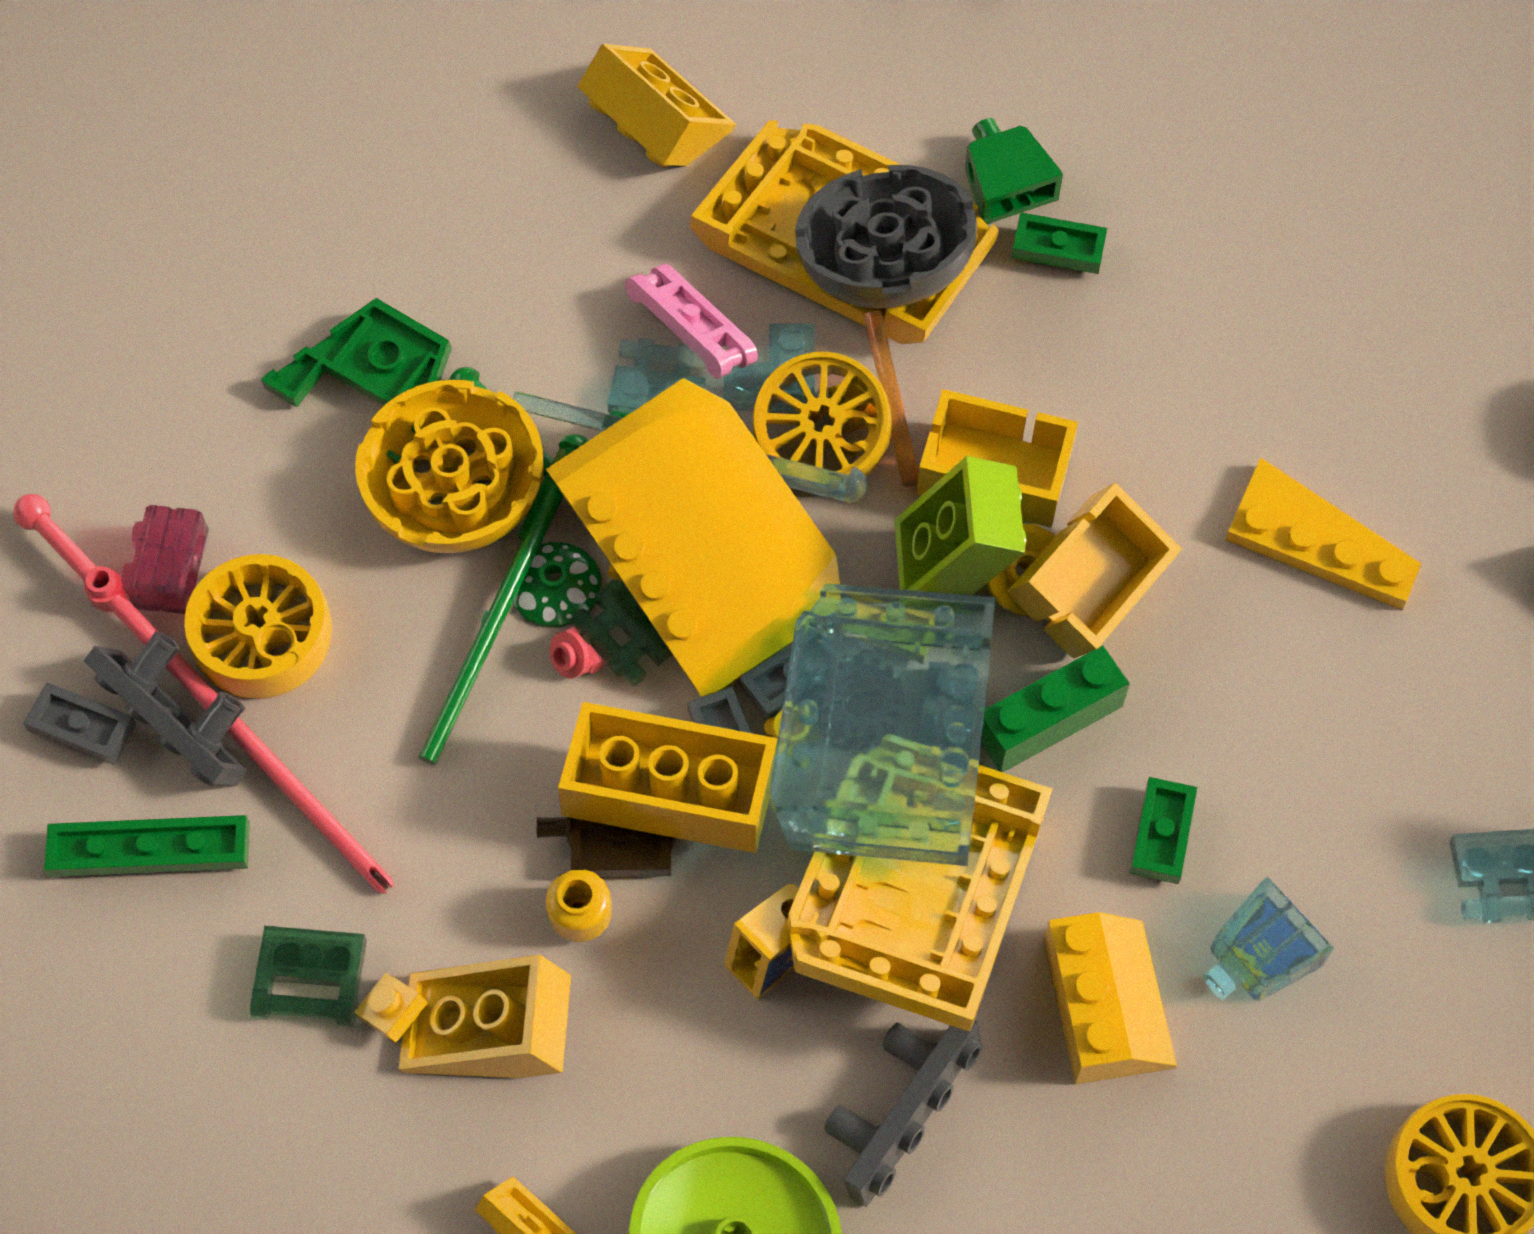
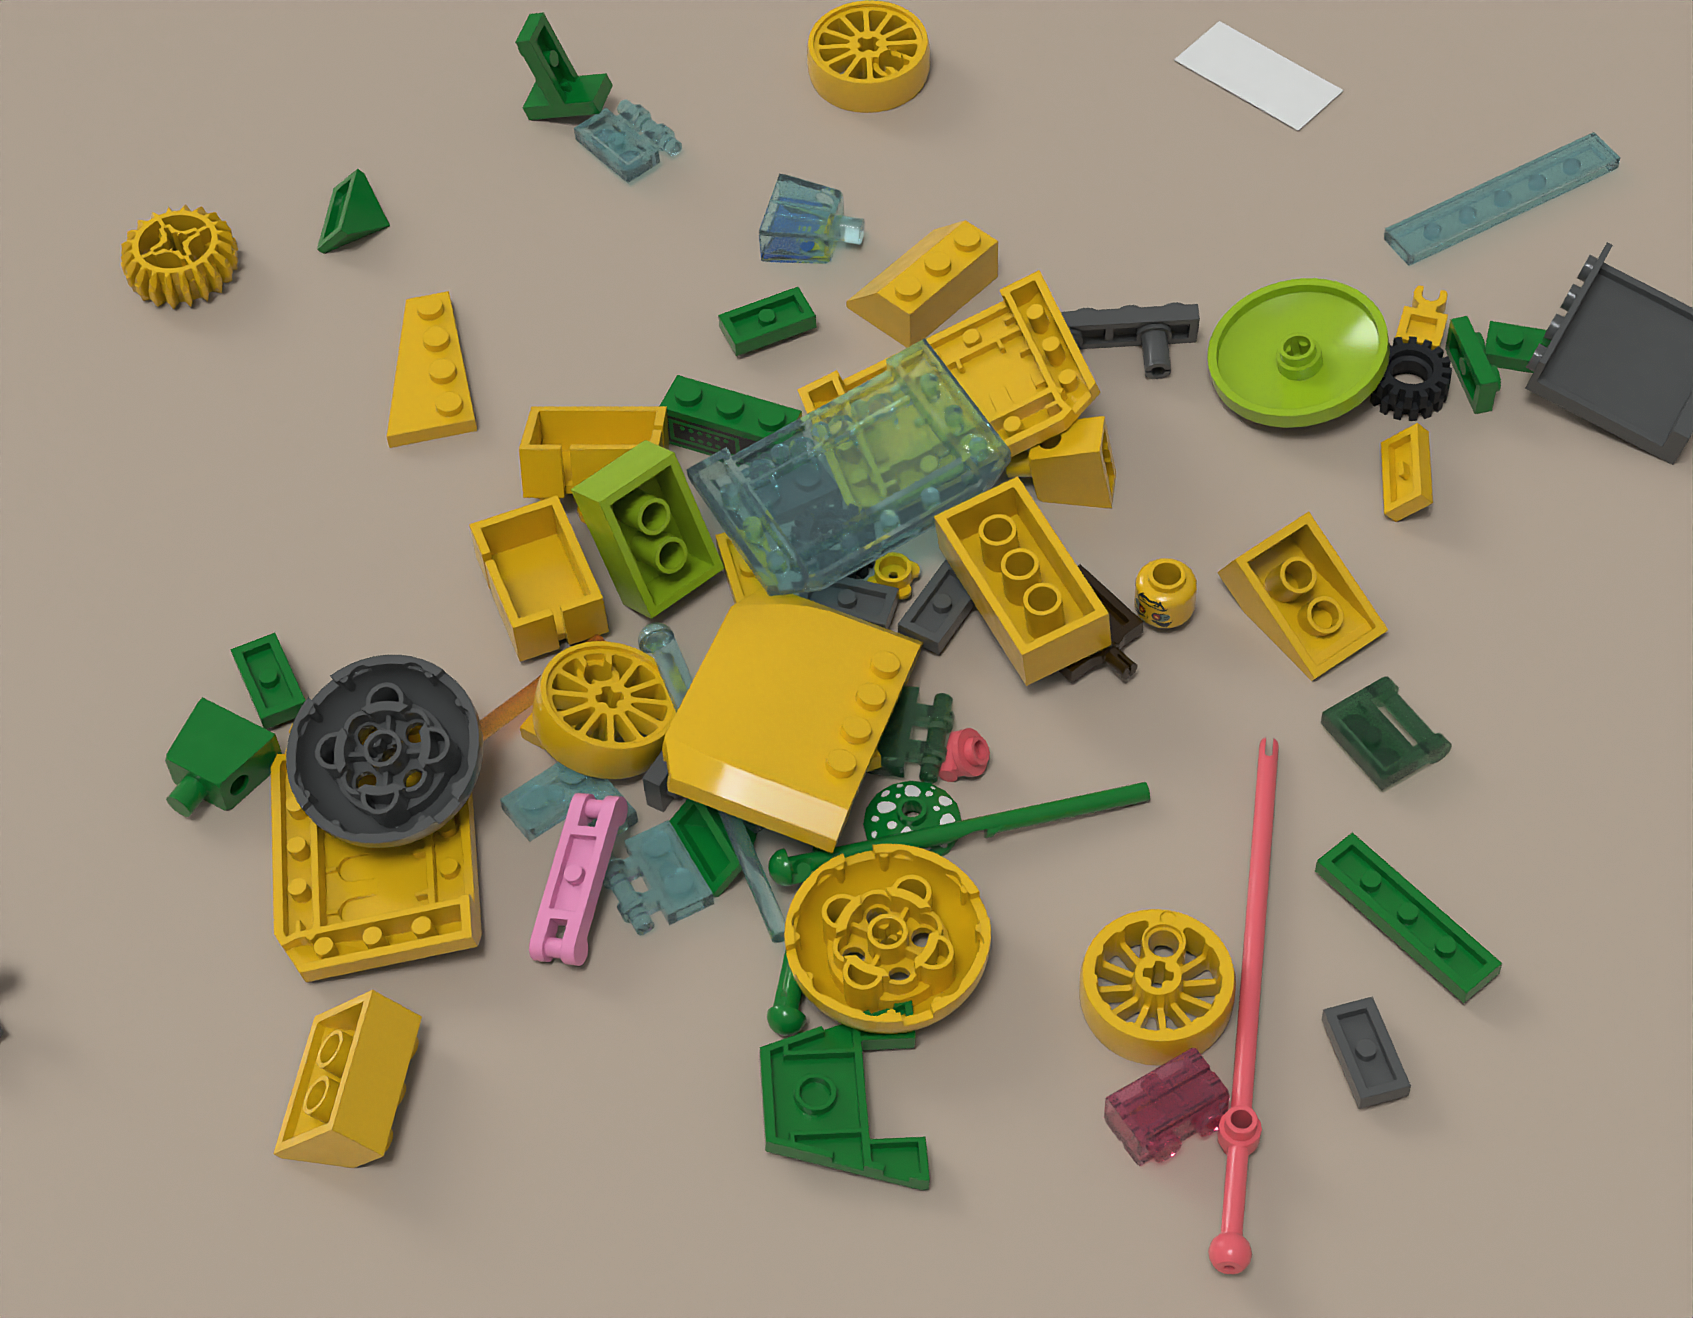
camera: 125 degrees left, 10 degrees down
(149, 704) = (1298, 1009): dark grey plate -> none
(390, 1007) = (1352, 661): yellow plate -> none

